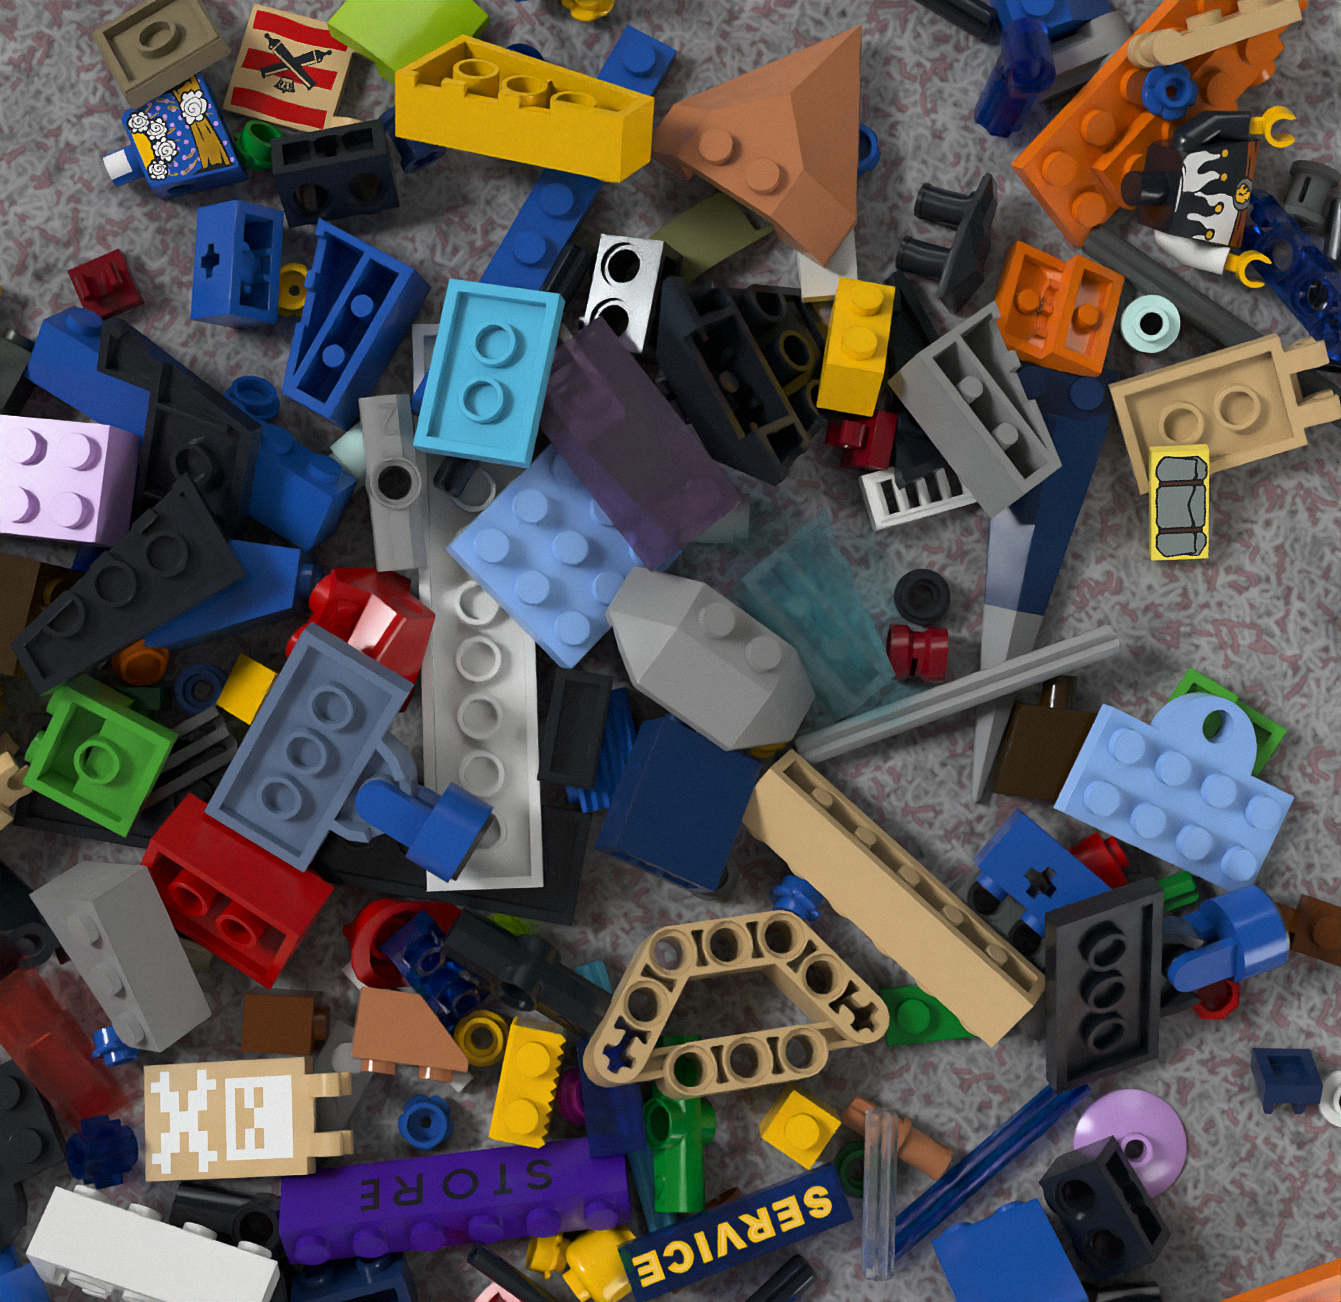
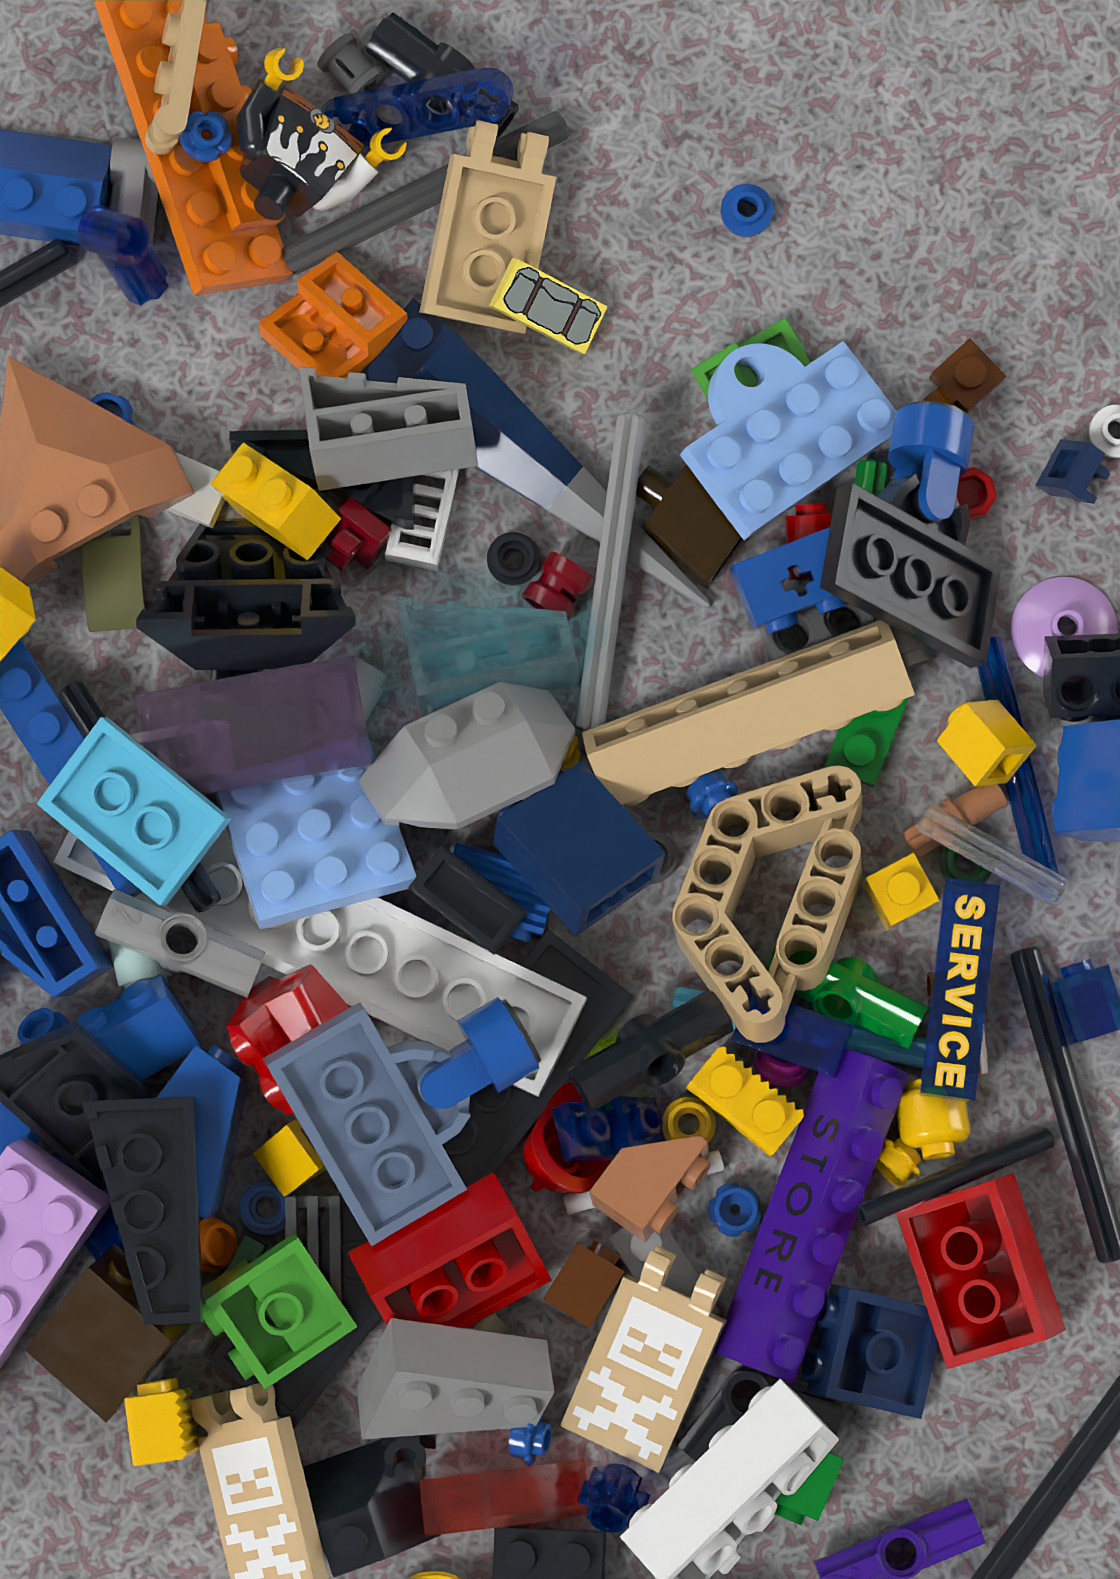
camera: 60 degrees left, 5 degrees down
(637, 298) = (136, 658): brick -> none
(962, 265) = (254, 379): black connector -> none
(983, 1132) = (985, 742): none -> yellow brick
(1132, 331) = (387, 269): light aqua brick -> none

